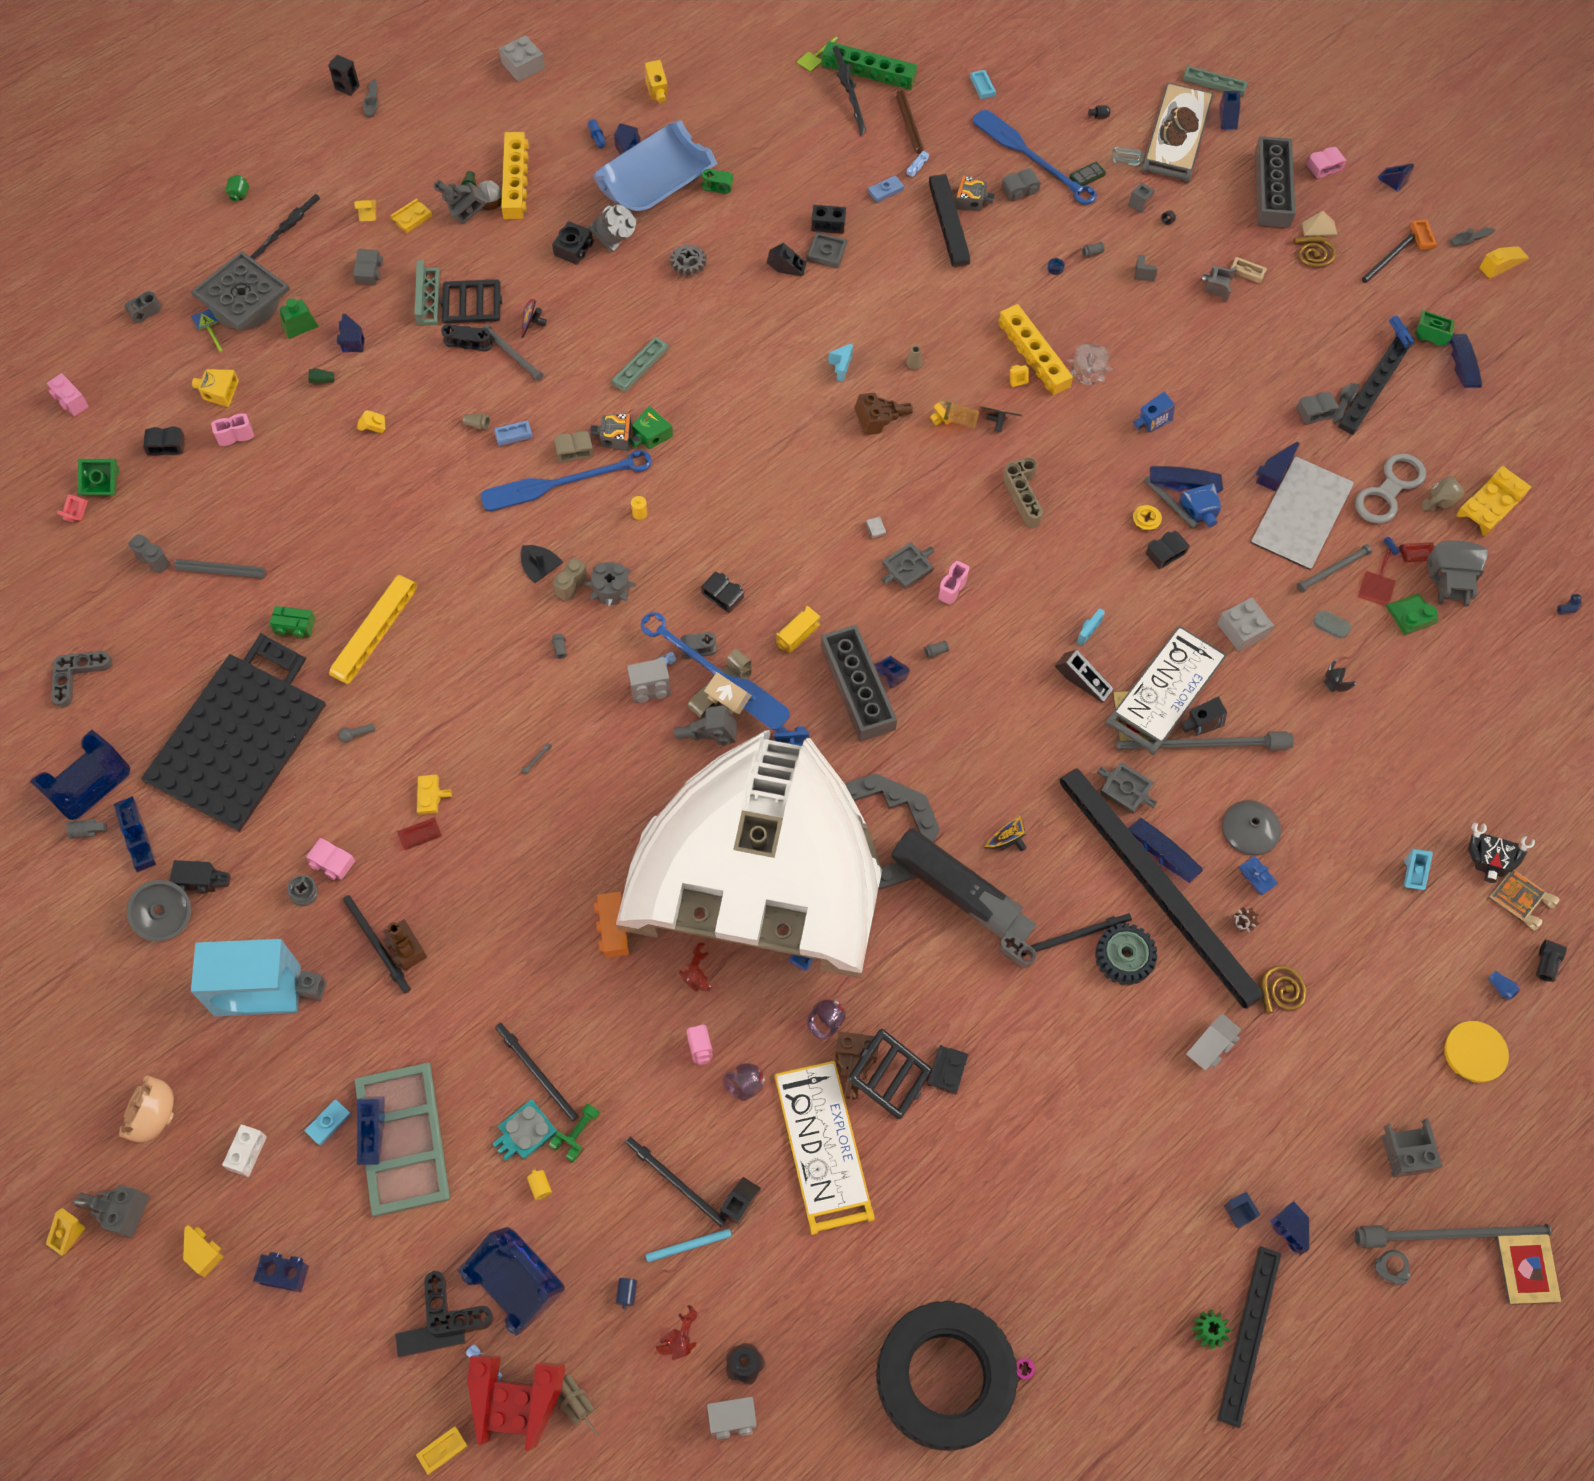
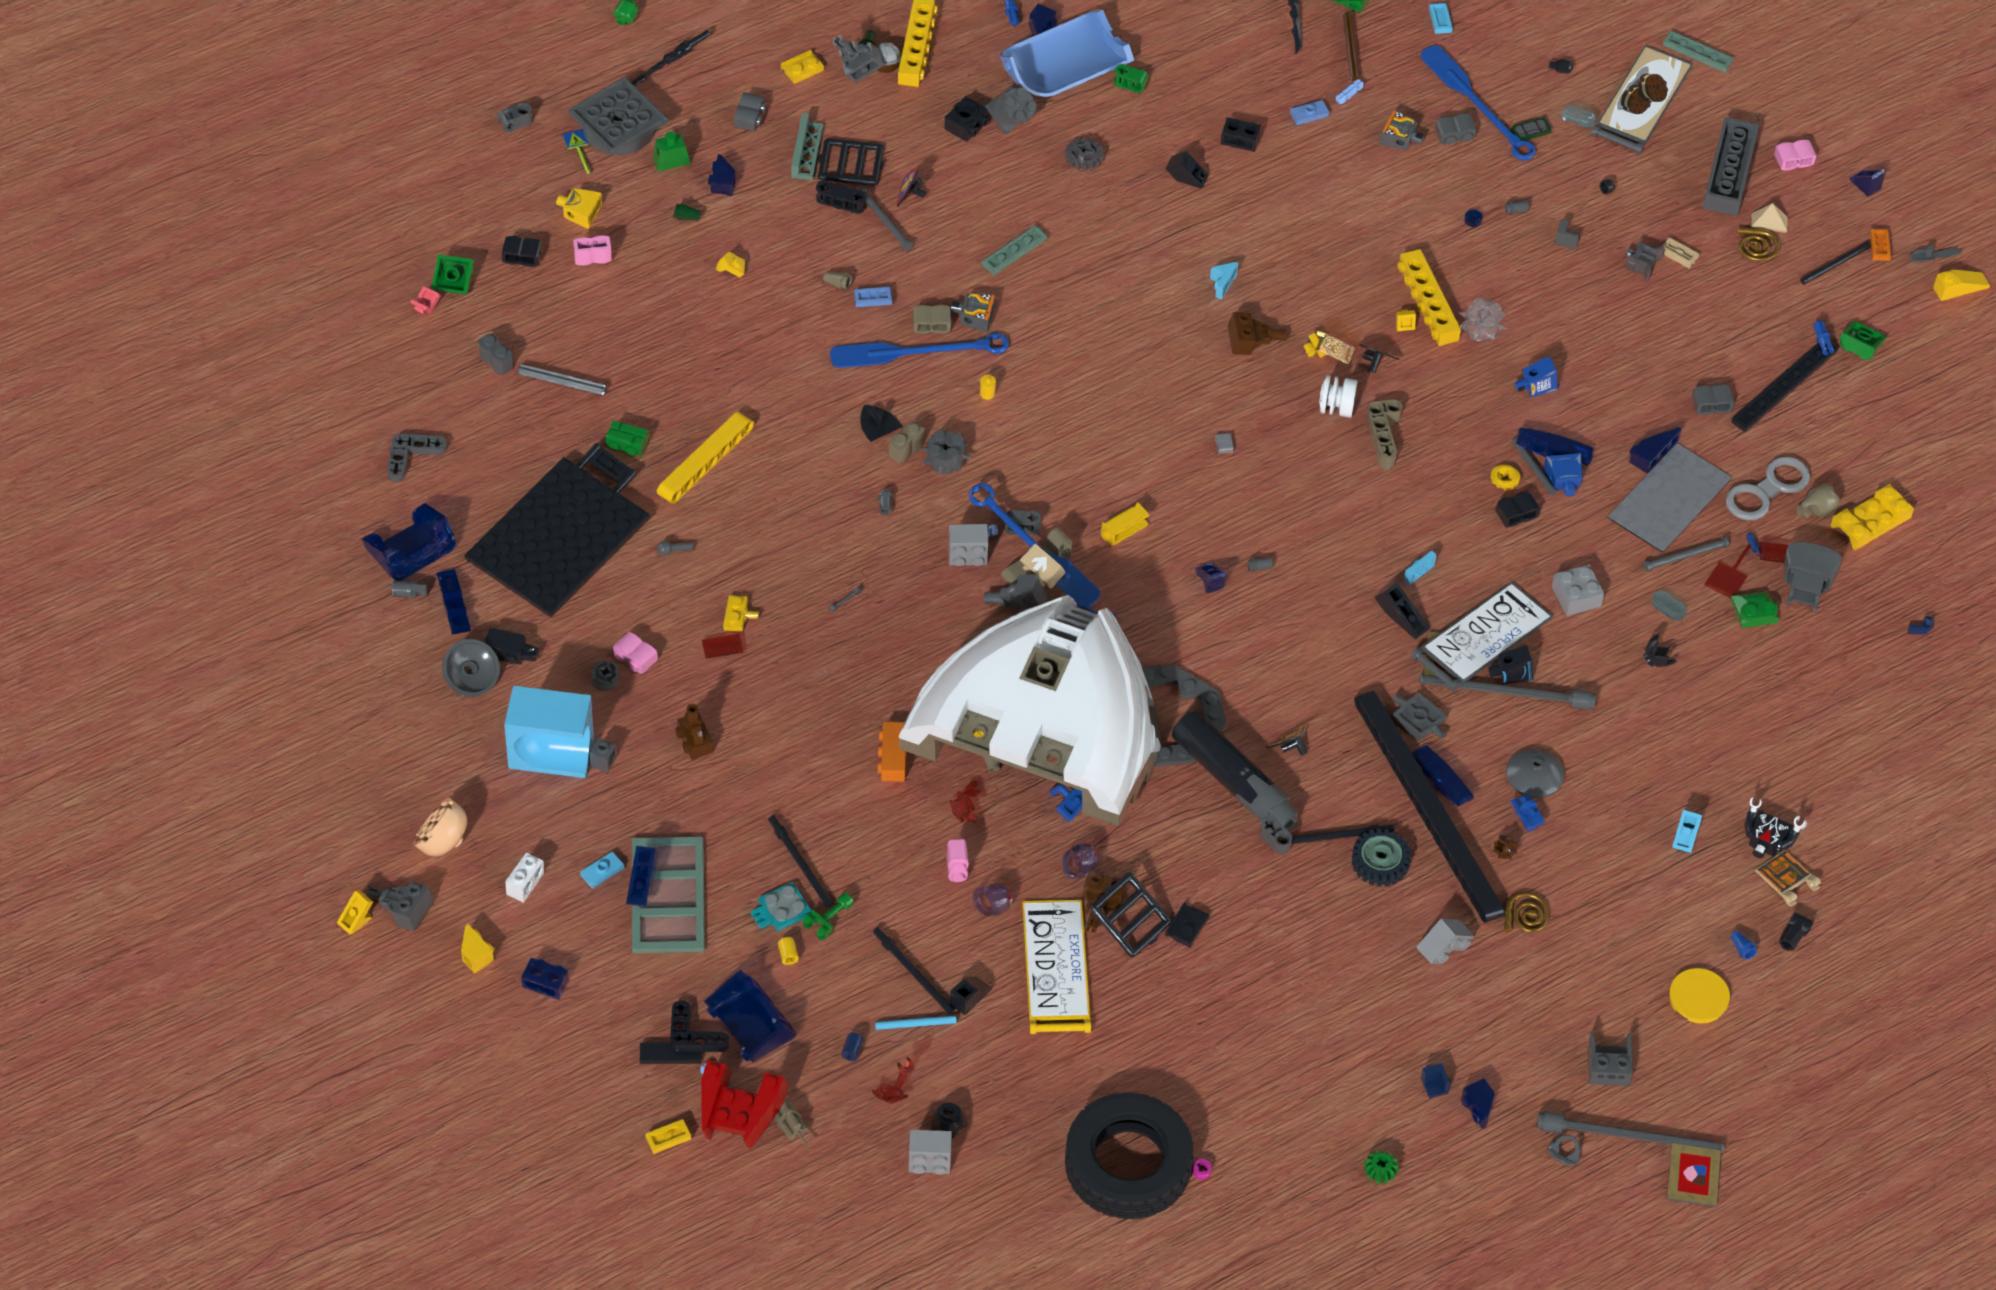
camera: 10 degrees right, 10 degrees down
(67, 394) = (431, 192): bright pink brick -> none
(366, 210) = (756, 54): yellow slope -> none
(395, 973) = (682, 758): black bar -> none
(650, 429) = (1013, 314): green torso -> none
(722, 592) = (1056, 478): black brick -> none
(827, 250) = (1232, 166): dark grey tile -> none
(858, 683) = (1174, 580): dark grey brick -> none
(907, 565) = (1248, 483): dark grey plate -> none
(914, 359) = (1300, 287): dark tan cone -> none
(949, 220) = (1369, 154): black beam -> none
(953, 582) = (1290, 505): bright pink brick -> none
(975, 462) = (1338, 396): none -> white wheel
(1140, 196) = (1580, 159): dark grey panel -> none
(1230, 109) = (1703, 84): clear blue slope -> none
(1249, 1337) = (1416, 1181): black tile -> none
(1347, 396) = (1747, 394): dark grey piece -> none
(1466, 362) = (1884, 377): clear blue slope -> none

